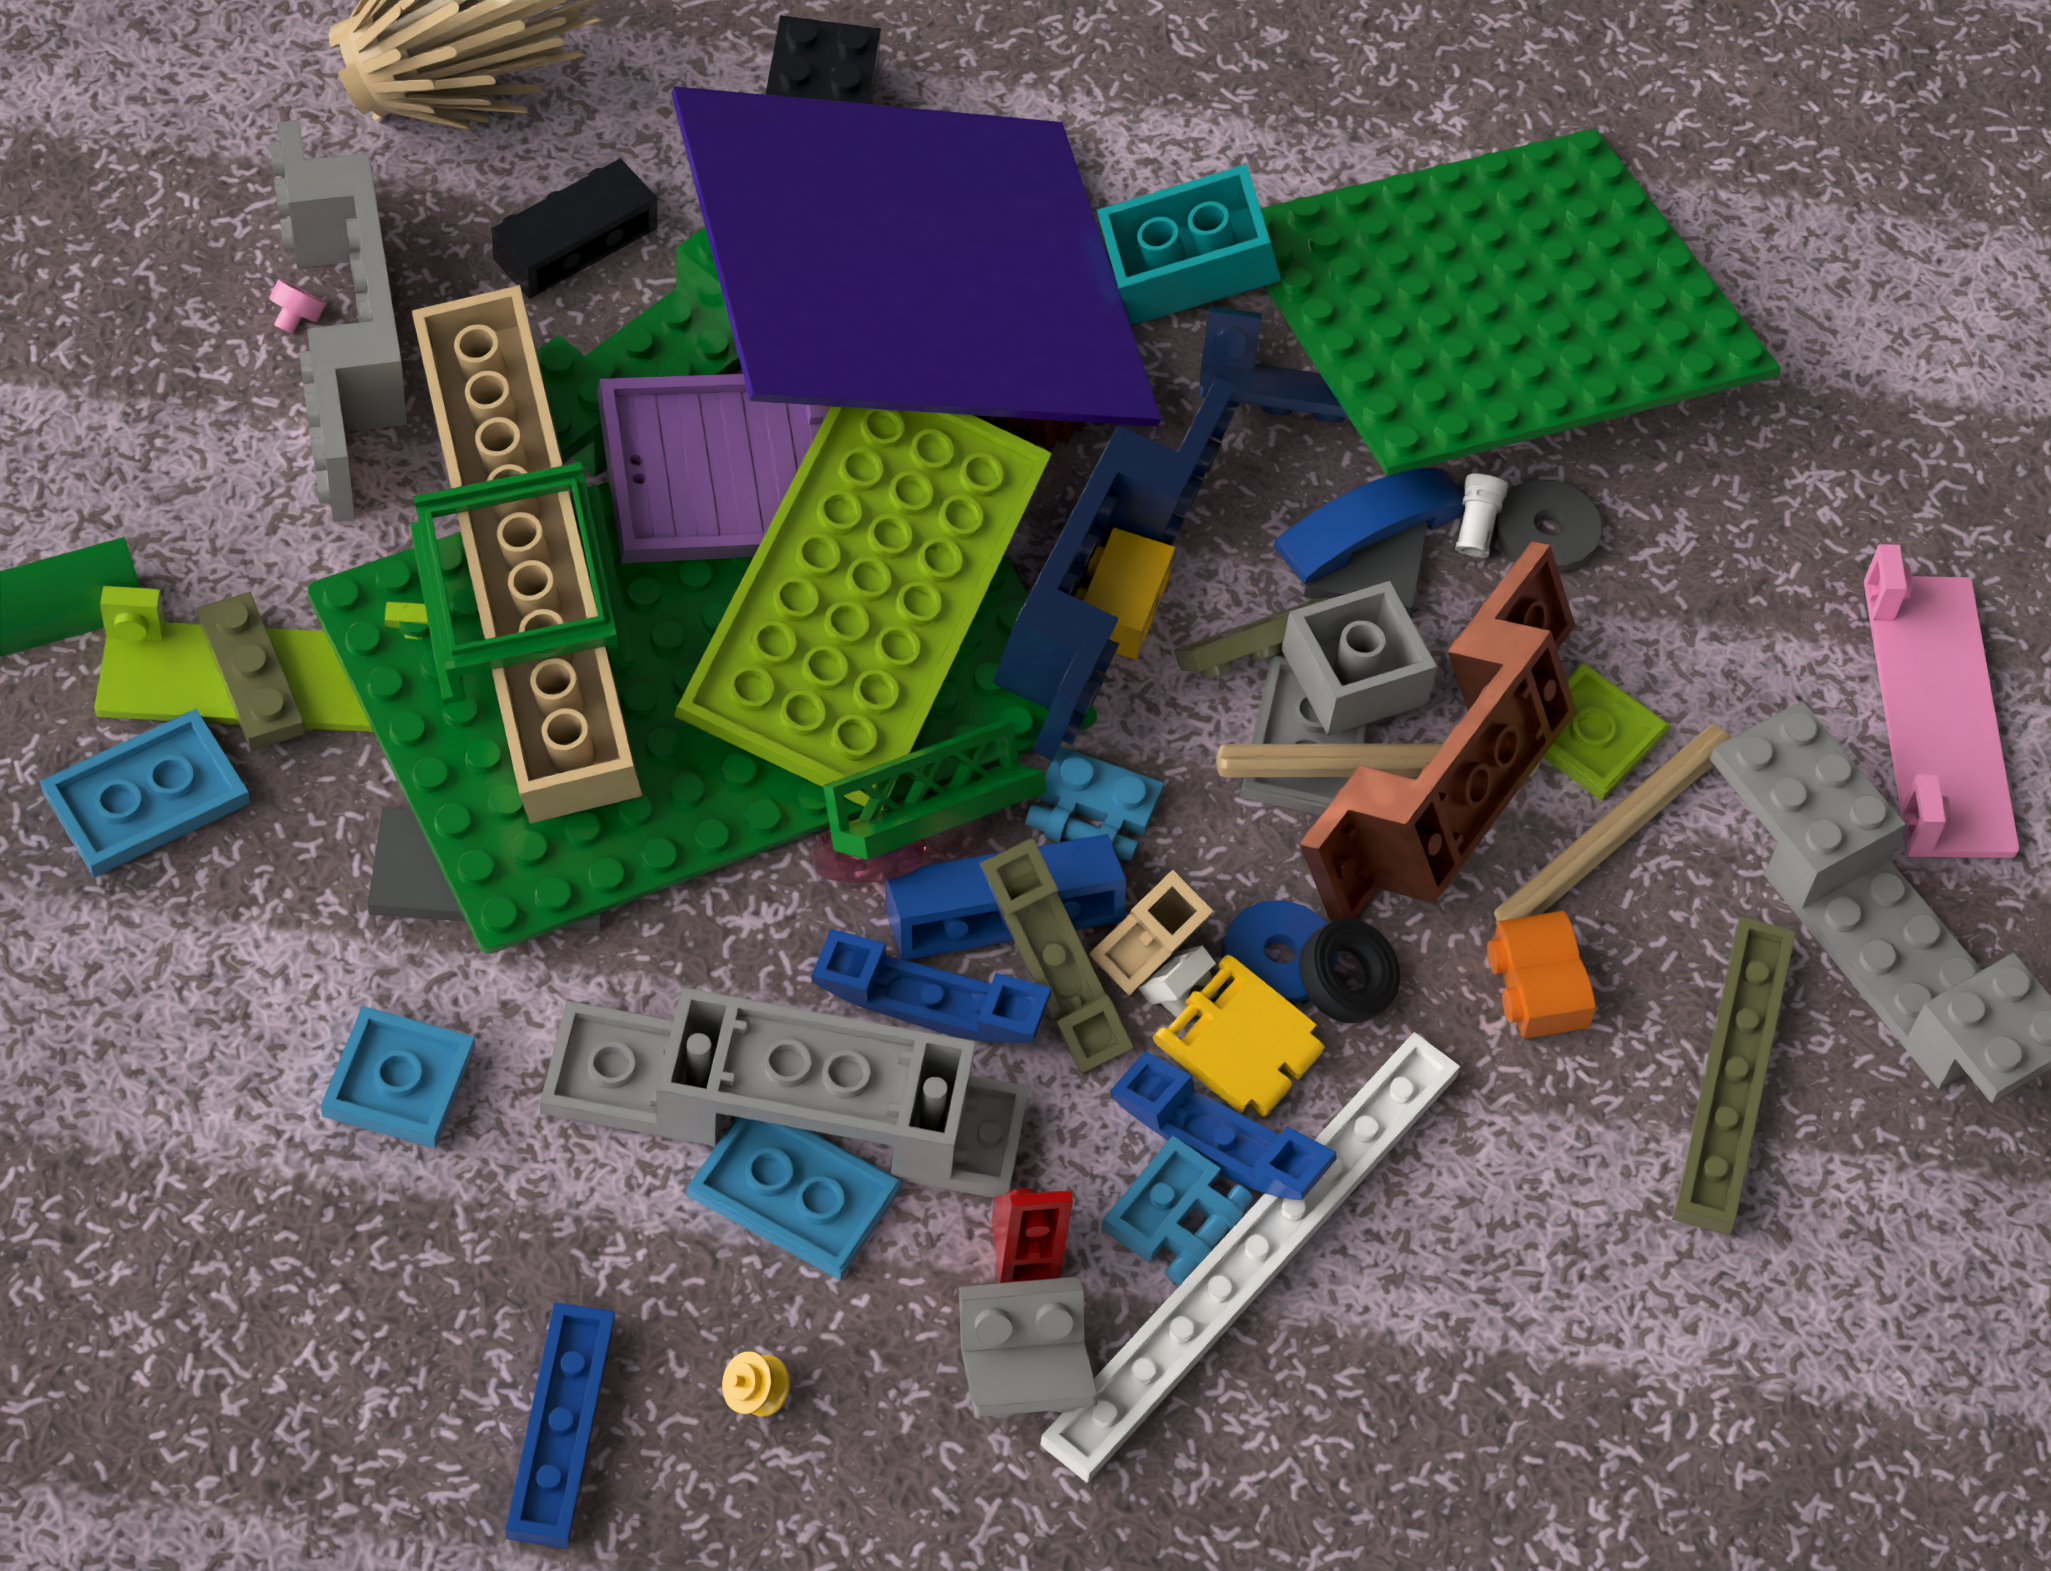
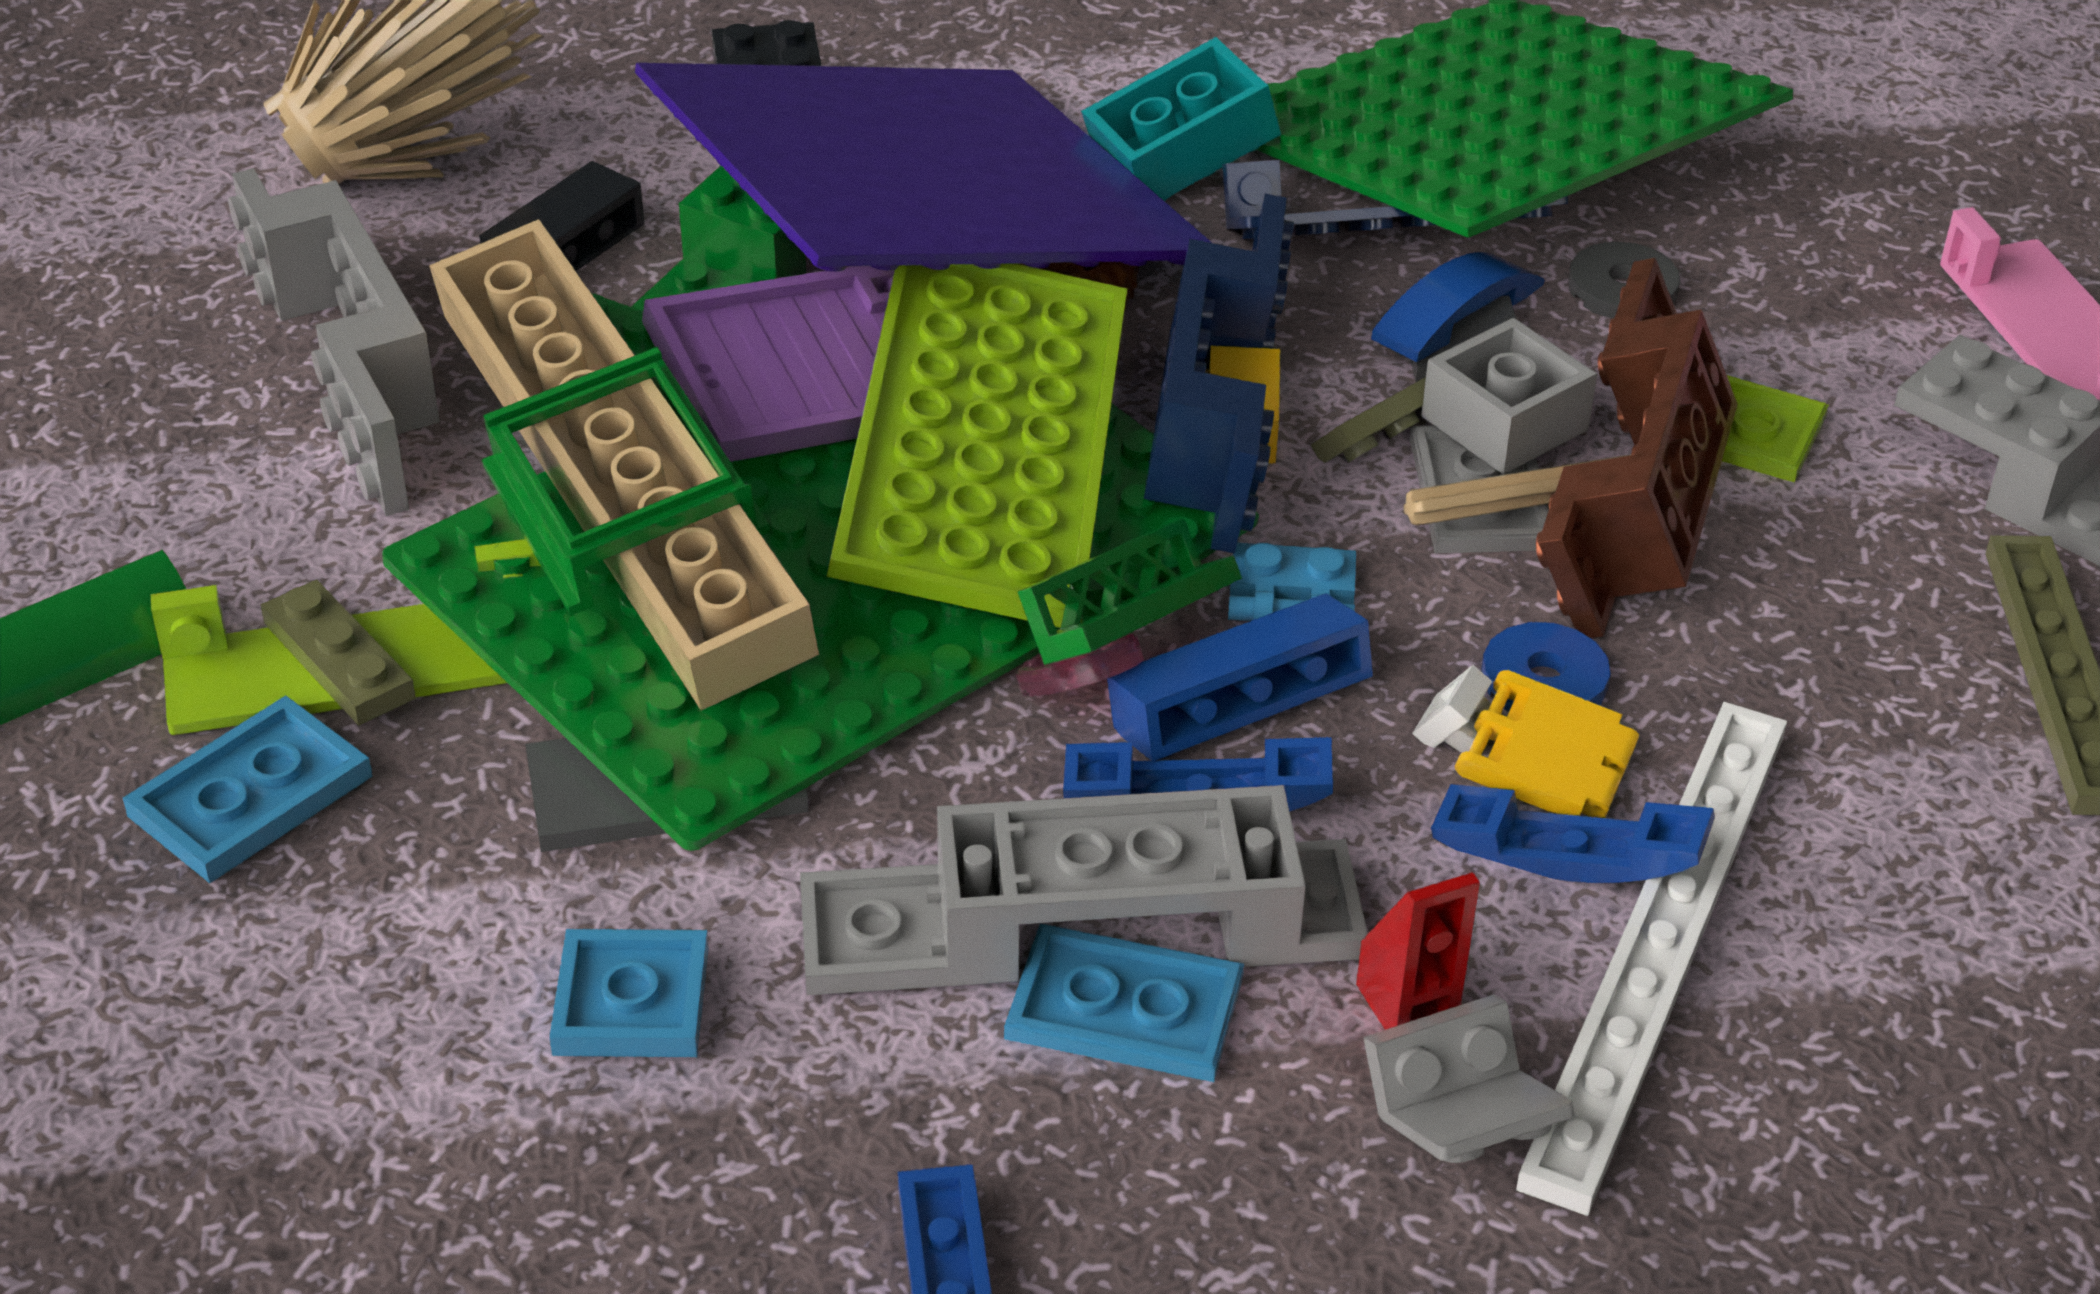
camera: 10 degrees left, 15 degrees down
(295, 305) = (290, 340): bright pink tile -> none
(755, 1384) = (1167, 1201): yellow wheel -> none
(1055, 955) = (1314, 705): olive slope -> none
(1151, 933) = (1413, 666): tan brick -> none
(1163, 1198) = (1536, 916): dark azure plate -> none
(1323, 984) = (1616, 682): black tyre -> none
(1481, 504) = (1556, 268): white pin -> none
(1542, 975) = (1825, 627): orange brick -> none
(1614, 828) = (1819, 501): tan axle -> none

